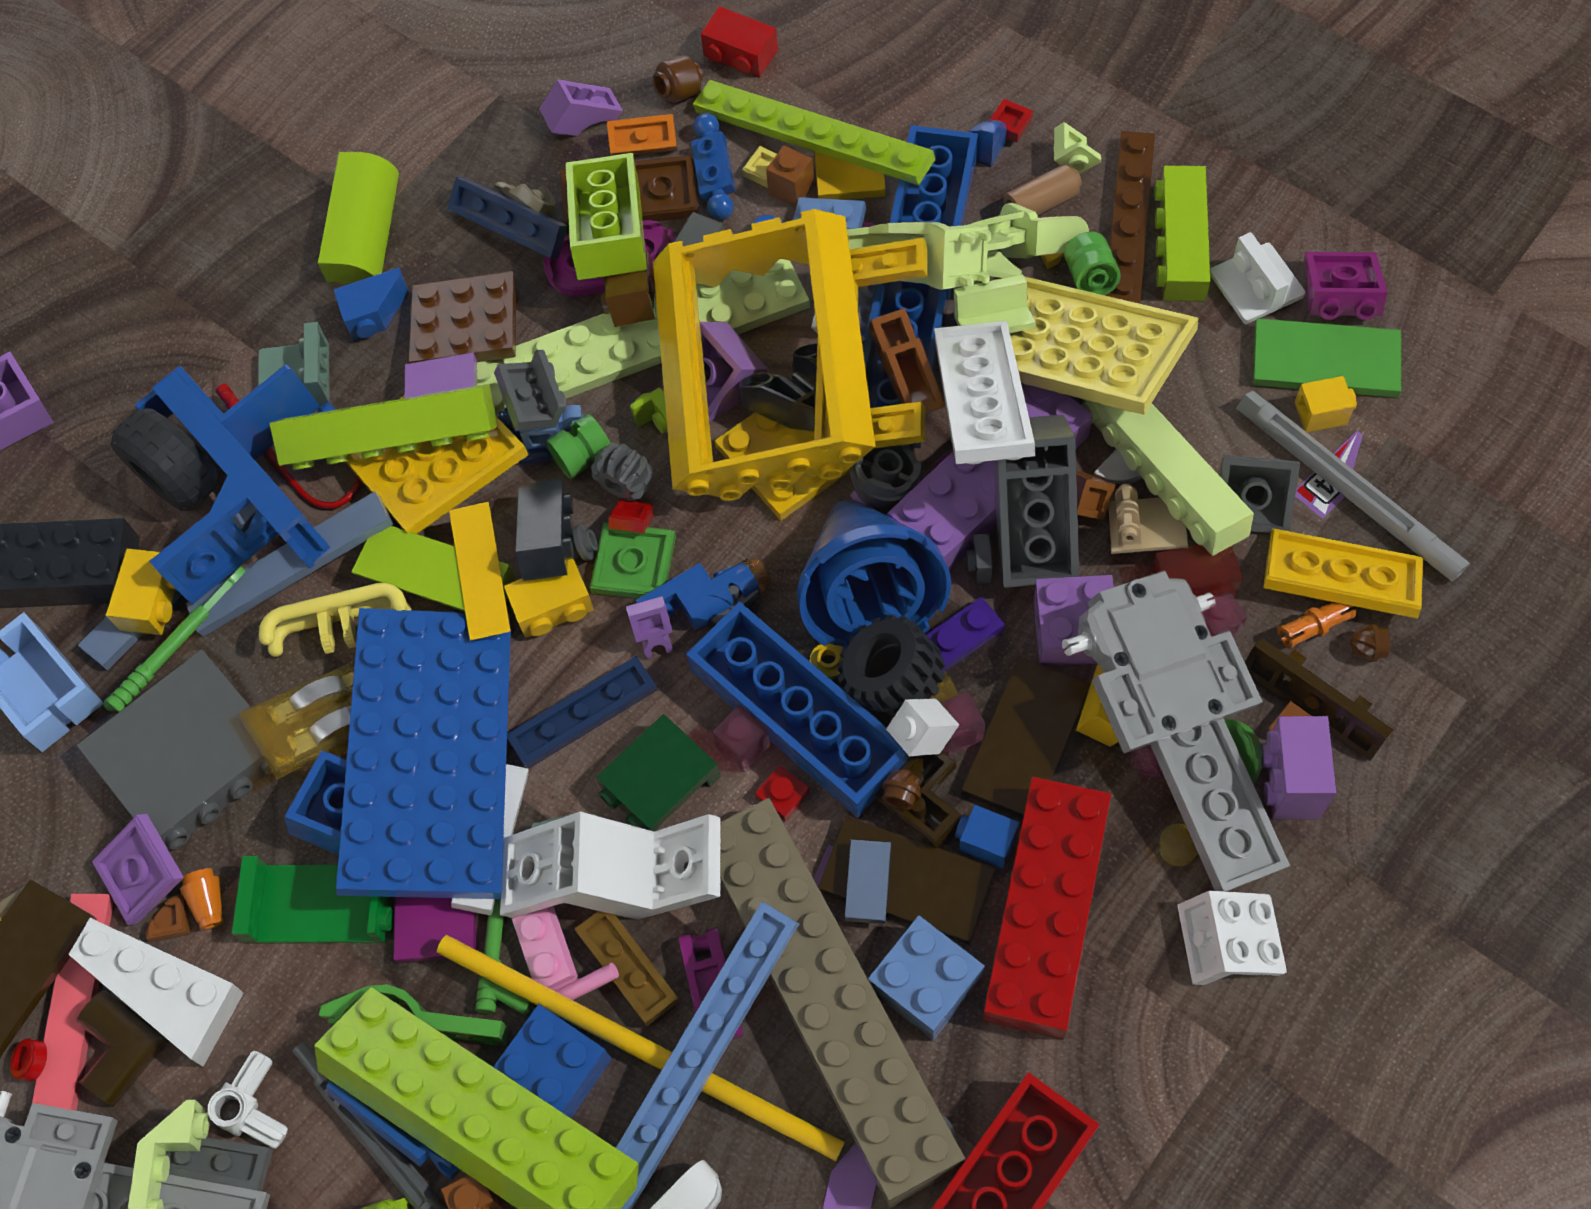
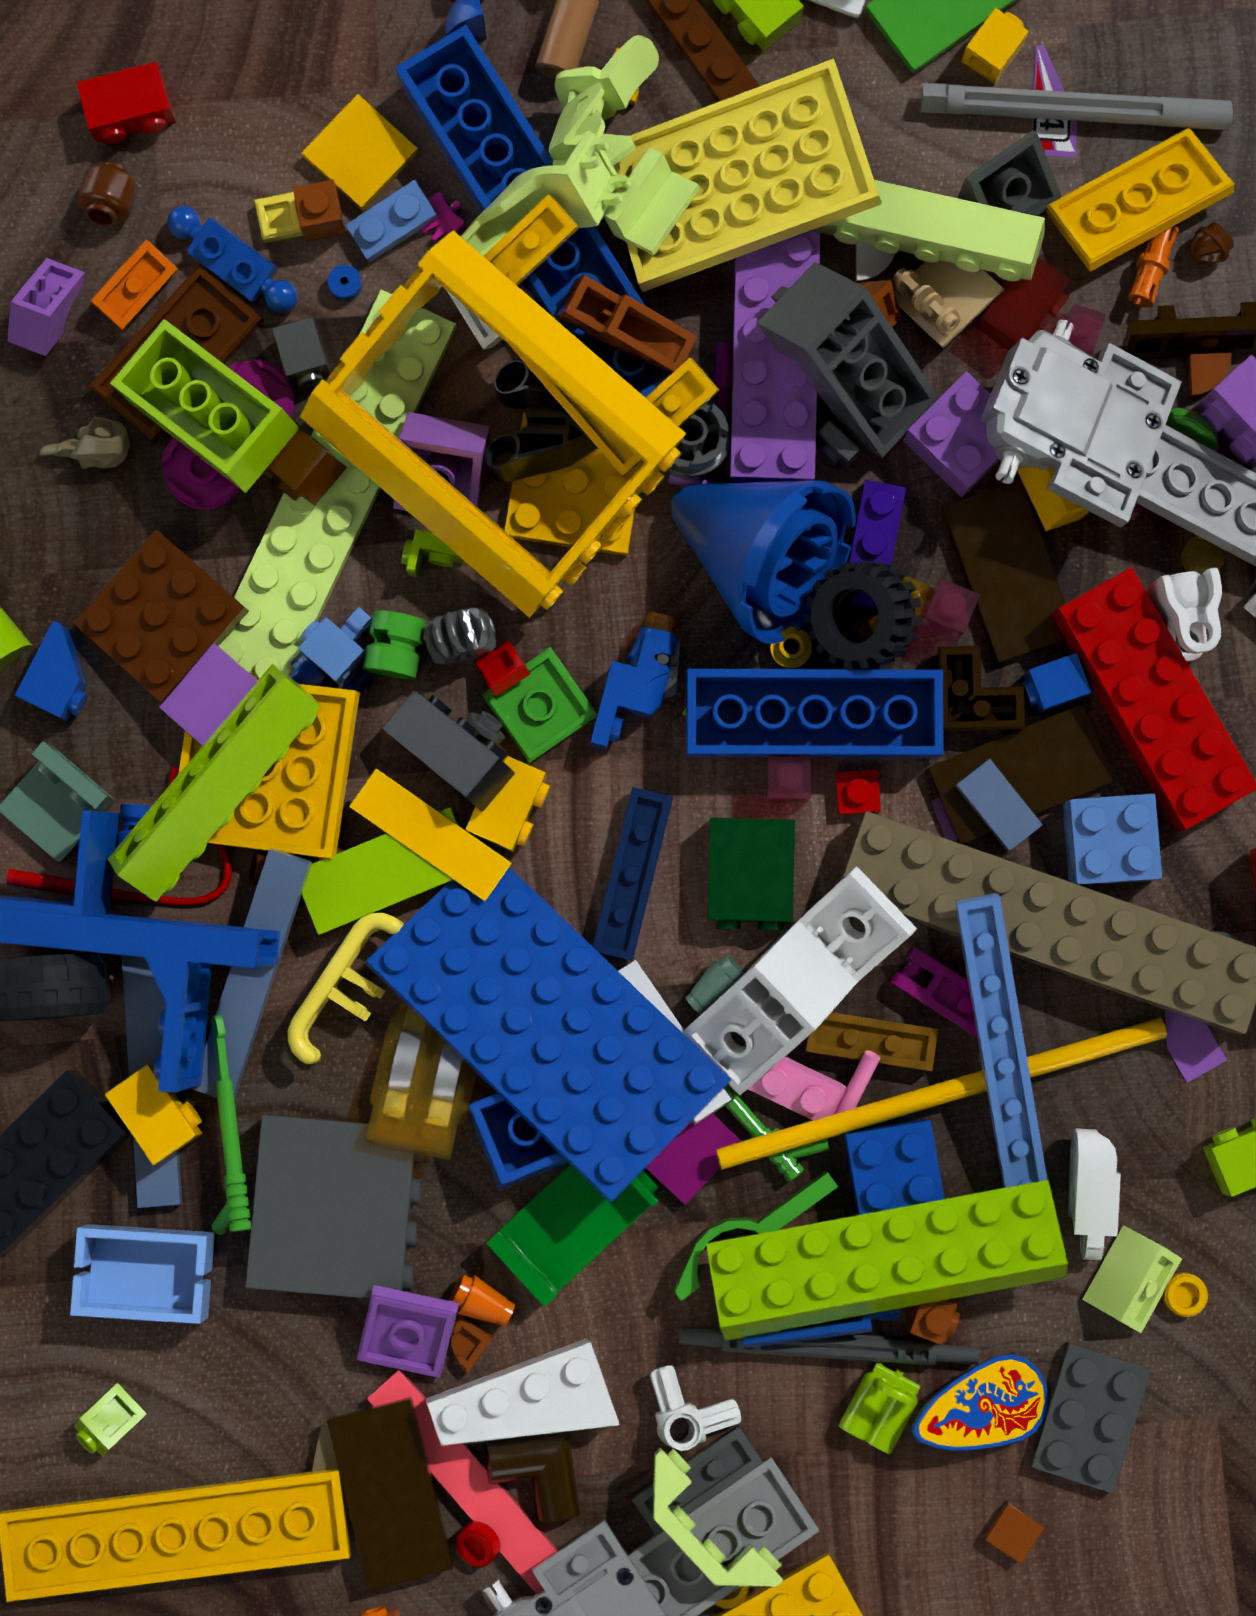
camera: 50 degrees left, 20 degrees up
(507, 217) = (95, 480): dark blue plate -> none
(531, 393) = (315, 637): dark grey bracket -> none
(650, 624) = (623, 750): medium lavender plate -> none
(815, 132) = (301, 148): lime plate -> none
(901, 789) = (963, 708): reddish brown plate -> none
(922, 727) = (938, 644): white brick -> none
(983, 393) = (741, 306): white plate -> none
(1092, 263) = (682, 74): bright green wheel -> none
(1128, 864) = (1190, 605): none -> white piece

